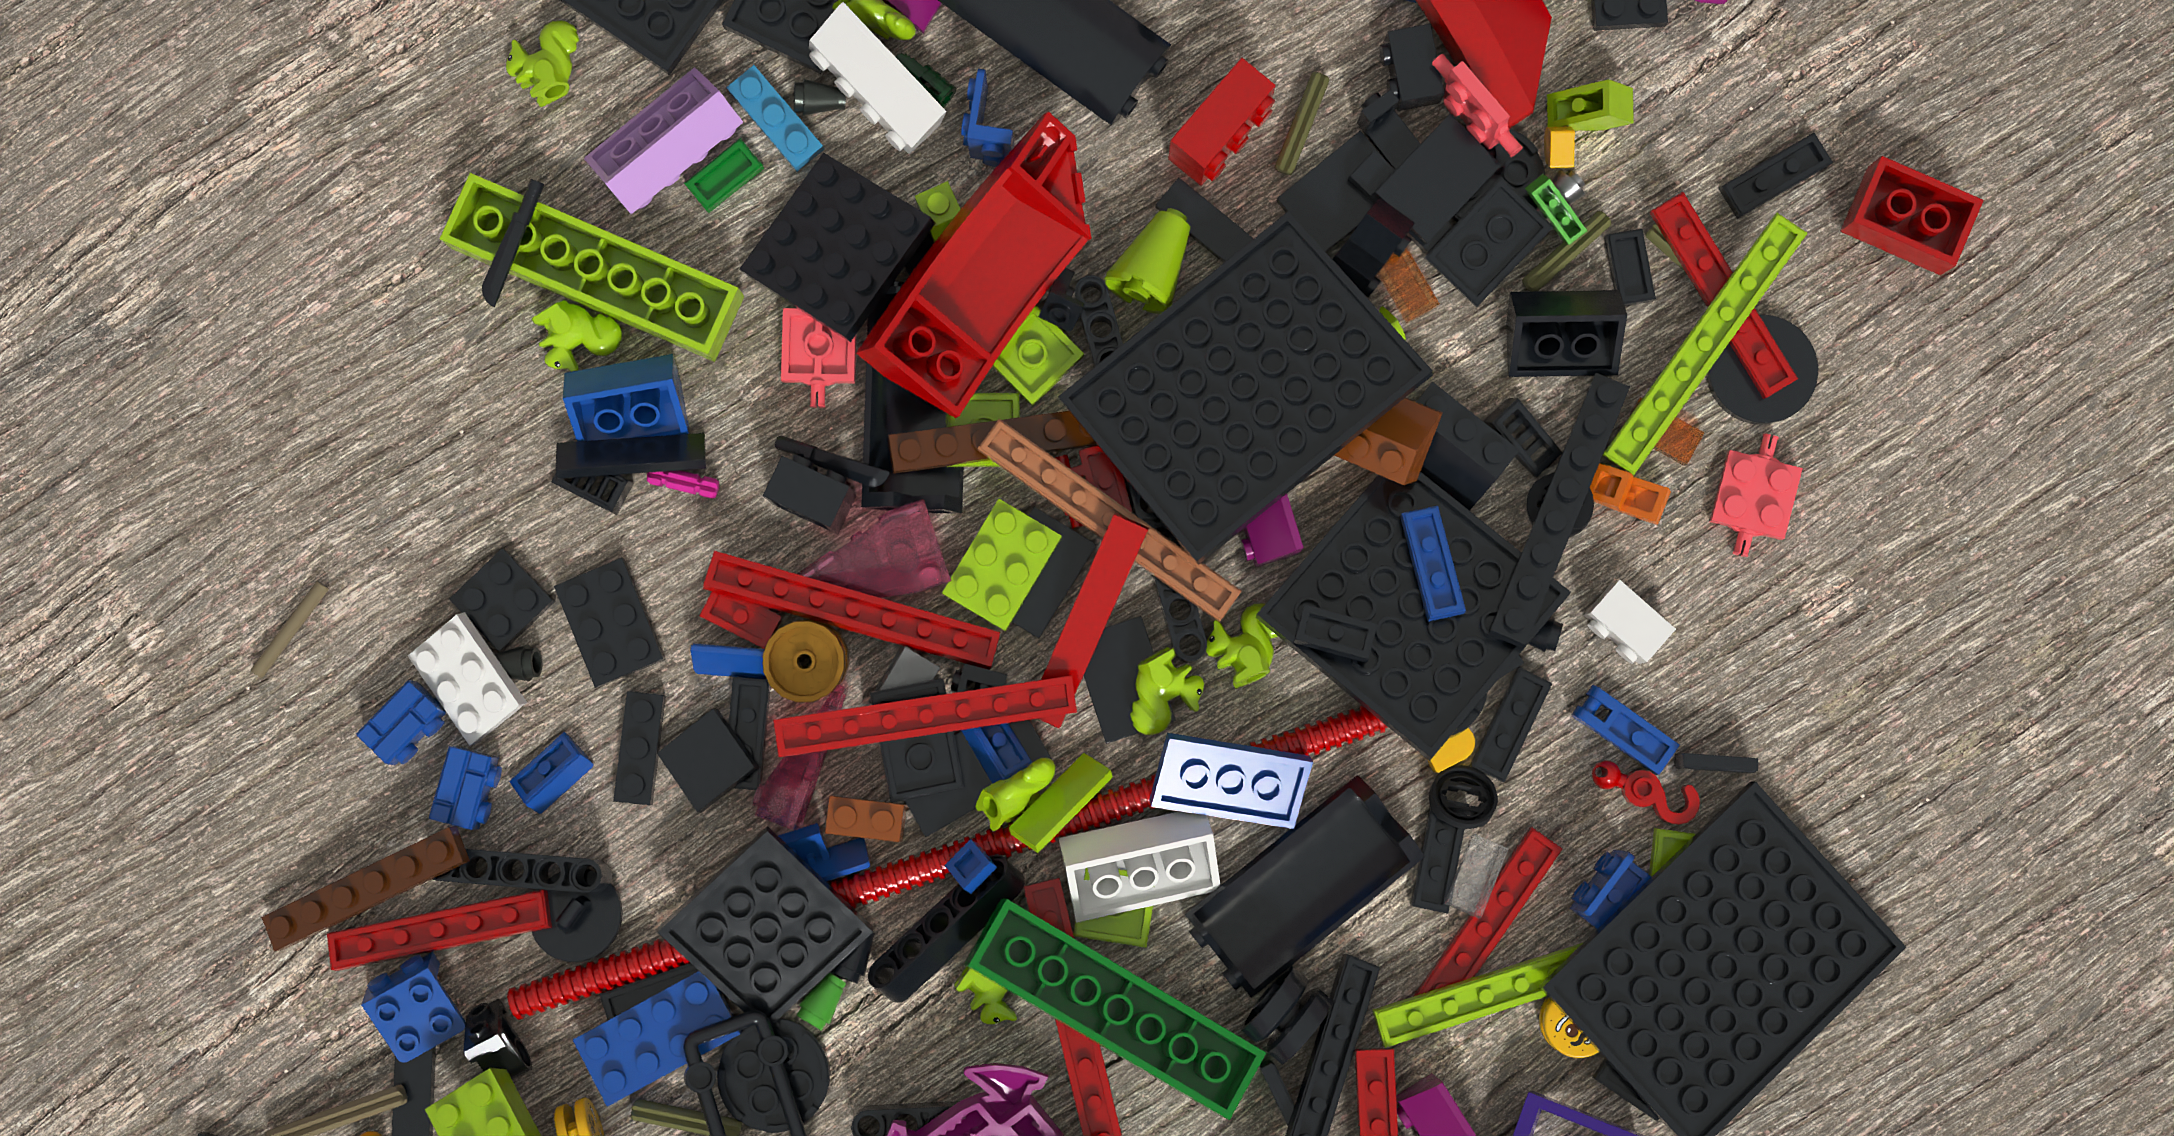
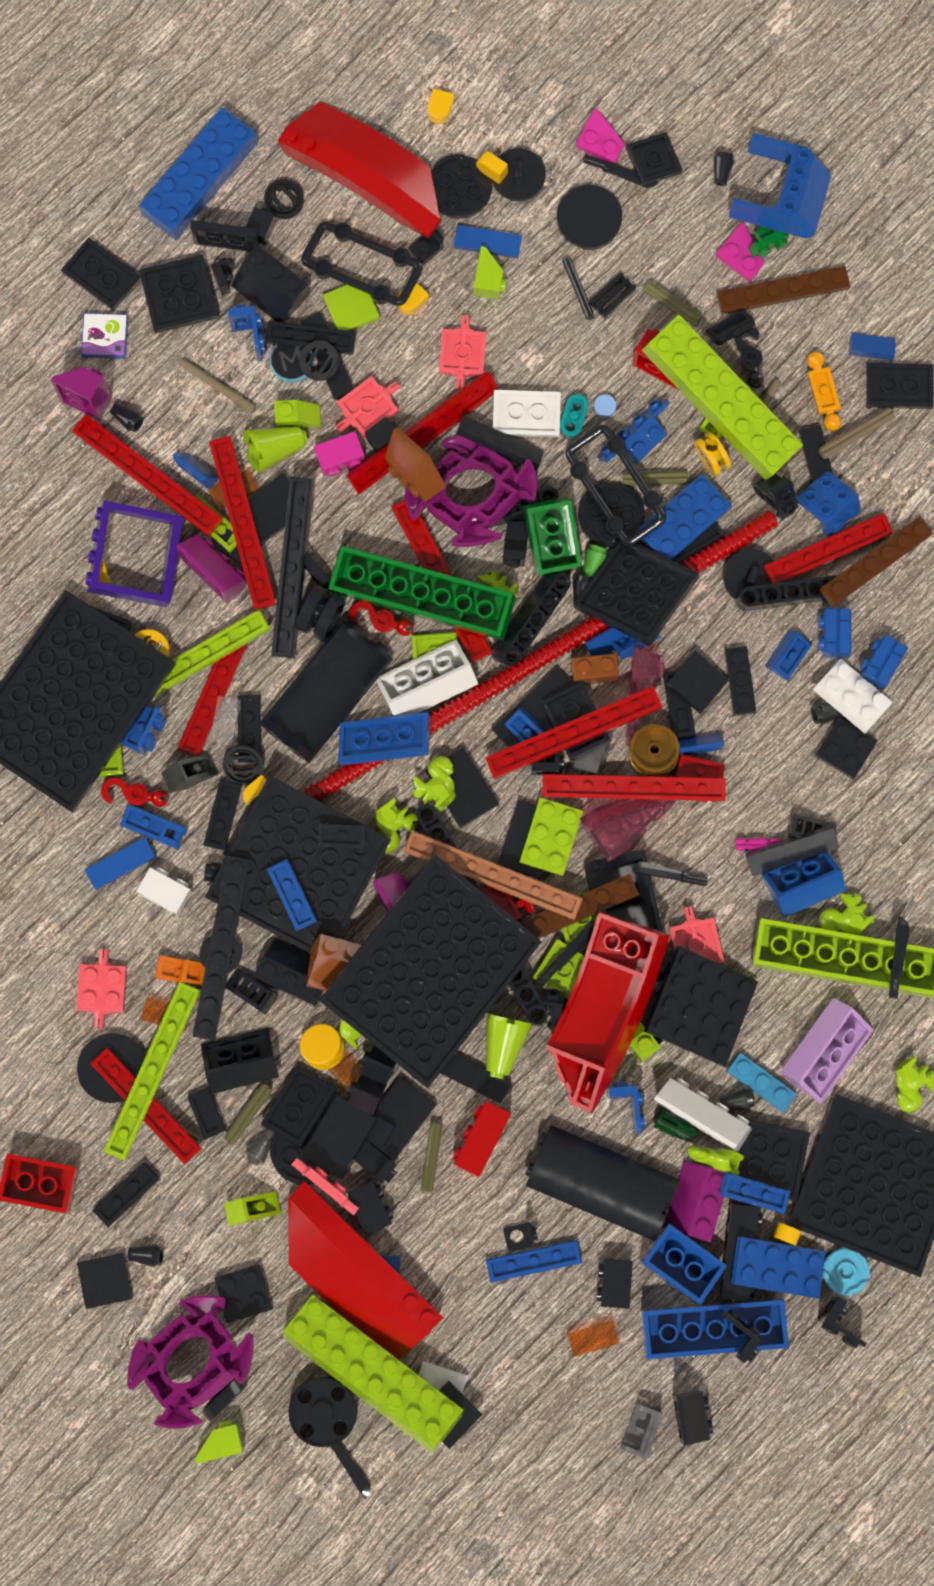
camera: 165 degrees right, 5 degrees down
(609, 622) = (778, 750): black plate -> none
(724, 175) = (783, 1039): green tile -> none
(809, 494) = (677, 850): black brick -> none
(878, 1056) = (552, 535): none -> green brick
(941, 1060) = (515, 544): none -> black bracket
(970, 866) = (525, 653): blue plate -> none
(1005, 385) = (569, 952): none -> black piece
(1013, 796) = (510, 701): lime animal -> none
(1060, 802) = (481, 704): lime tile -> none
(1095, 603) = (489, 825): red tile -> none
(1188, 983) = (382, 620): none -> red piece
(1434, 321) = (322, 1046): none -> yellow head
(1551, 803) = (189, 773): none -> pearl dark grey slope
(1556, 209) = (261, 1133): bright green piece -> none
(1559, 147) = (267, 1176): yellow piece -> none
(1688, 685) = (120, 863): none -> blue tile
(1716, 763) = (95, 819): black tile -> none
(1762, 77) = (148, 1255): none -> black cone
(1832, 57) = (104, 1280): none -> black tile

